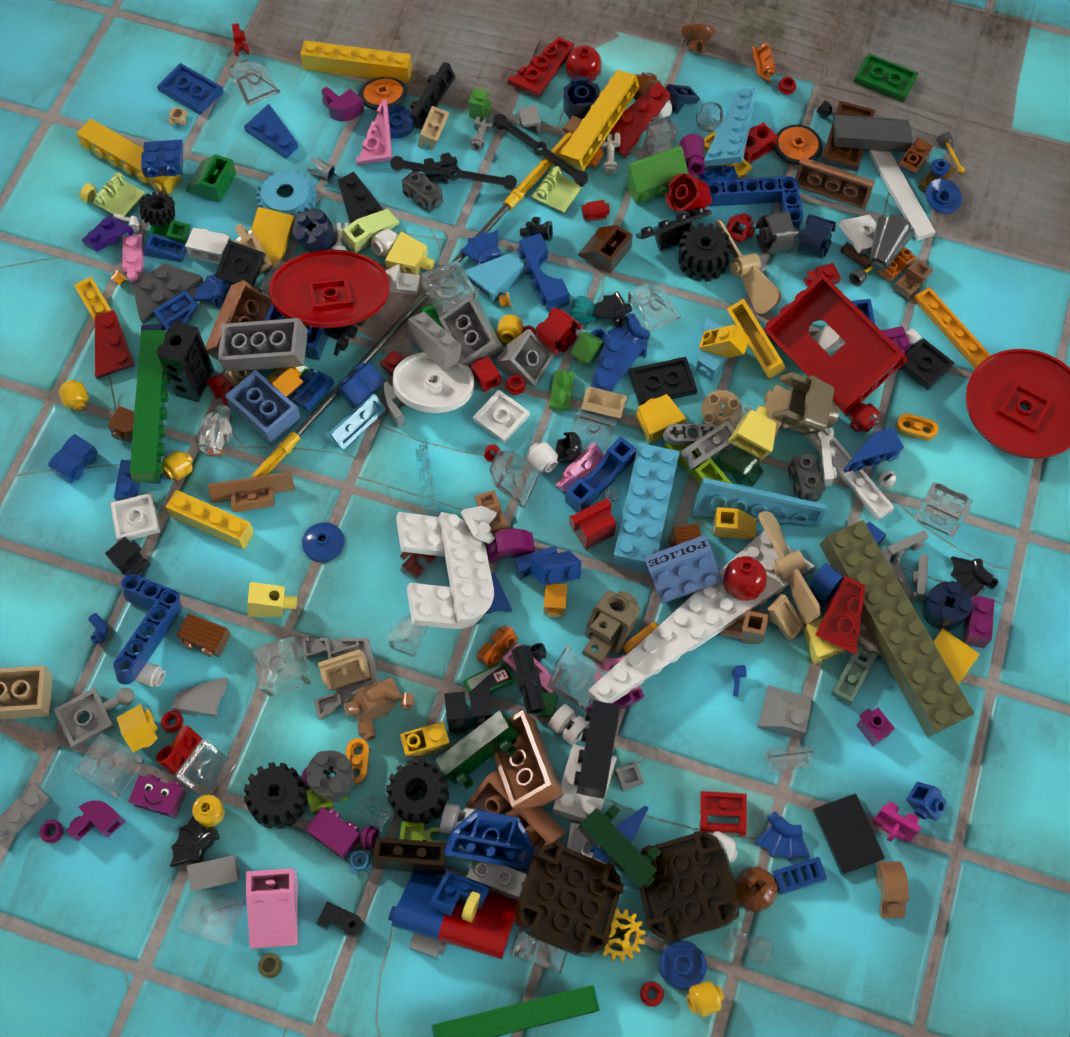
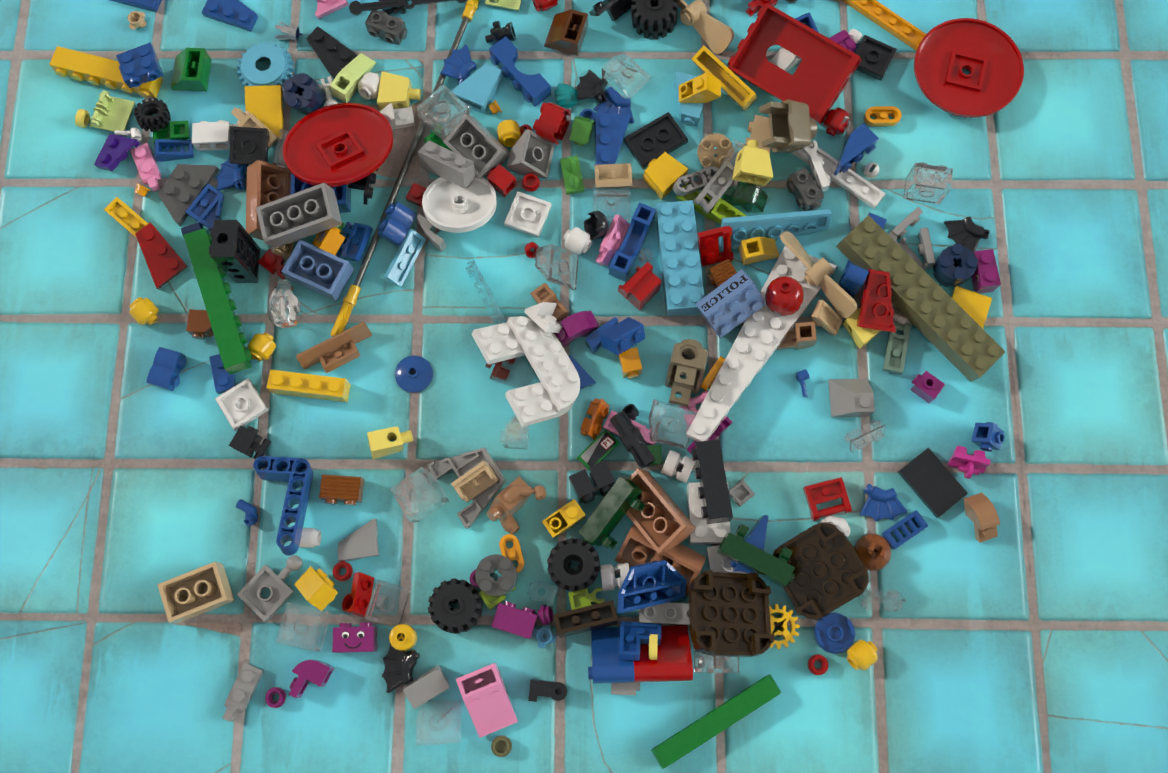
camera: 15 degrees left, 10 degrees up
(681, 505) = (709, 245): none -> red plate

